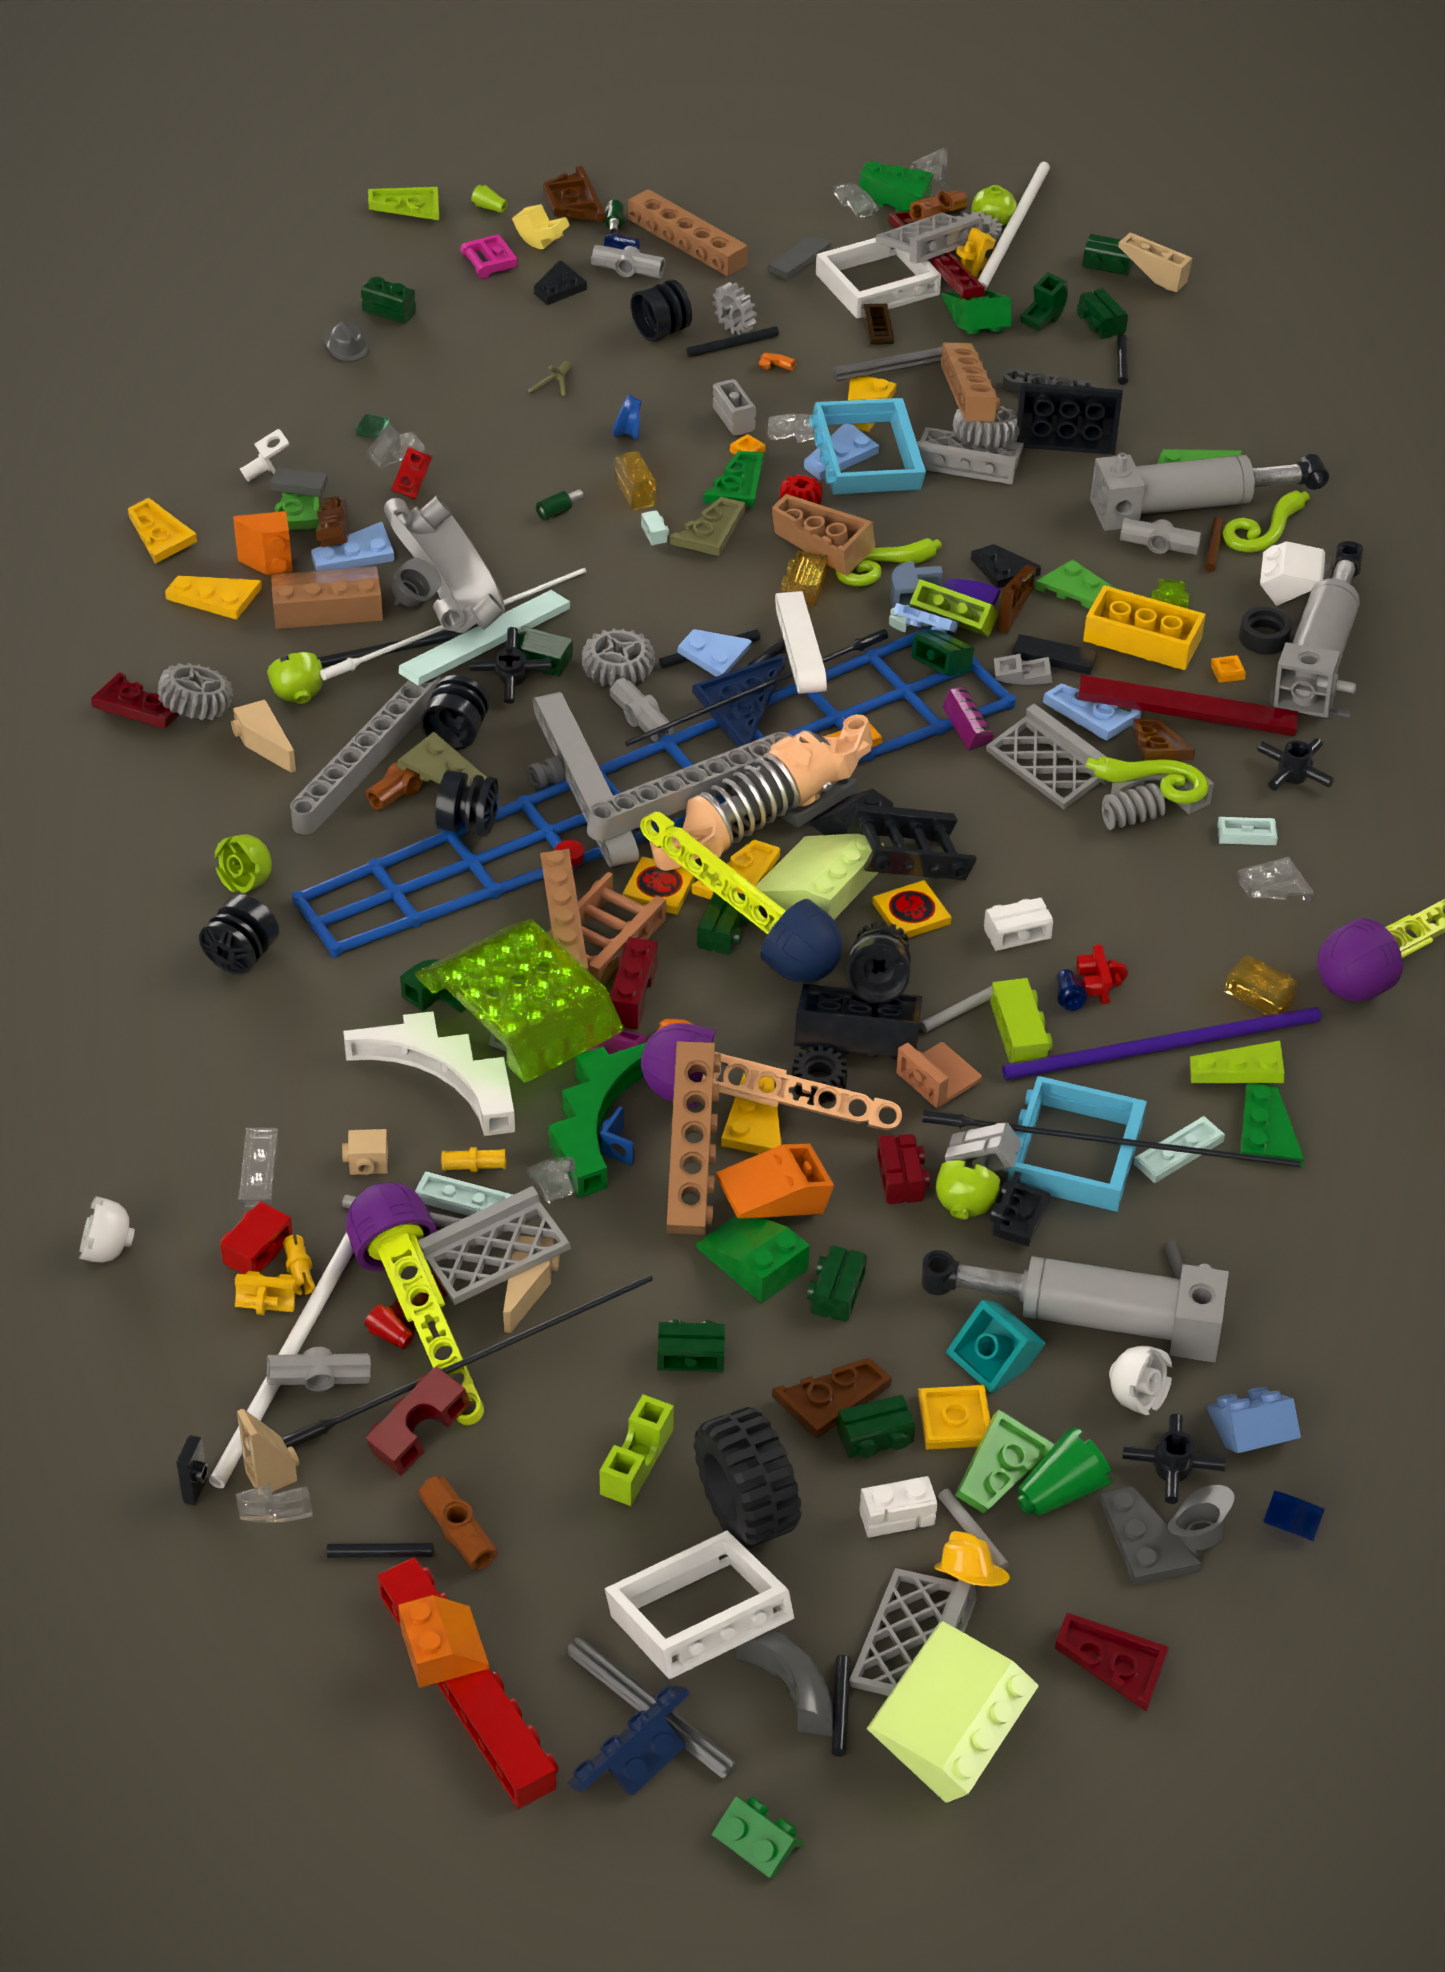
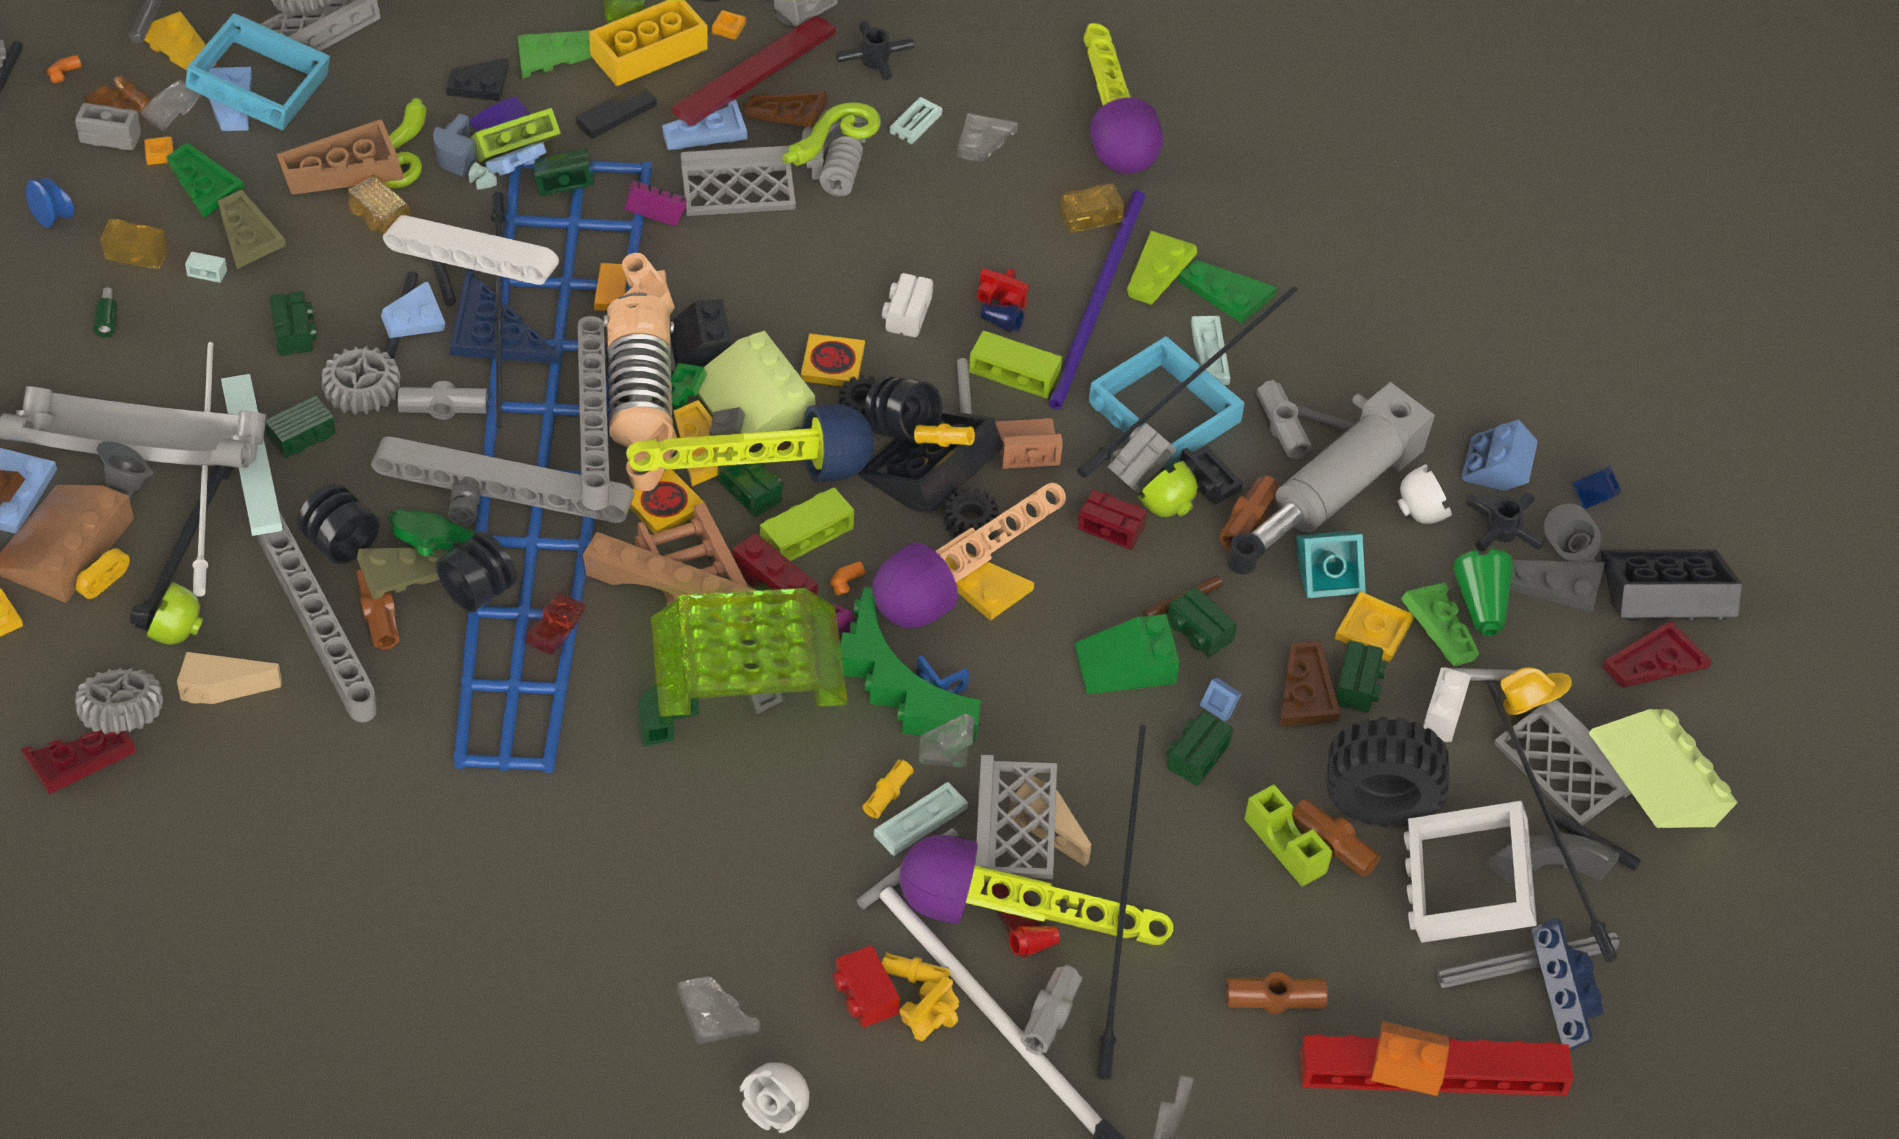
camera: 60 degrees left, 5 degrees up
(163, 1158) = (713, 1012): none -> clear wing
(239, 934) = (491, 819): black wheel -> none
(243, 863) = (392, 775): lime cylinder -> none
(258, 1166) = (773, 947): clear tile -> none
(265, 1454) = (1131, 1092): tan slope -> none
(309, 627) = (102, 573): none -> yellow plate
(366, 1151) = (824, 858): tan brick -> none
(379, 1550) = (1261, 1063): black bar -> none
(434, 1397) = (1162, 992): dark red arch -> none
(450, 1058) = (763, 744): white arch -> none
(477, 880) = (557, 623): none -> clear red slope
(498, 760) = (427, 531): none -> green tile
(510, 657) = (313, 460): black bar -> none
(575, 848) = (580, 537): red tile -> none
(639, 595) = (291, 323): none -> dark green brick
(670, 1491) = (1338, 836): none -> dark orange piece
(692, 1058) = (993, 623): medium nougat brick -> none
(693, 1722) = (1597, 927): none -> black piece
(707, 977) = (809, 524): none -> lime brick
(757, 1835) = (1687, 953): green bracket -> none
(761, 1338) = (1220, 699): none -> medium blue tile
(762, 871) = (727, 422): none -> dark grey plate
(769, 399) = (115, 98): none -> clear orange plate
(777, 1183) = (1082, 600): orange slope -> none
(789, 831) = (686, 382): none -> green plate
(803, 488) = (262, 147): red gear -> none
(867, 1001) = (944, 435): none -> yellow pin
(872, 1265) = (1163, 607): none -> reddish brown bar
(911, 824) = (759, 298): black fence -> none
(1001, 1256) = (1250, 510): none -> dark orange piece
(1014, 597) = (534, 89): reddish brown wing -> none
(1014, 671) = (619, 140): light grey slope -> none
(1139, 1234) = (1283, 419): none -> light grey piece
(1222, 1628) = (1671, 584): none -> black slope

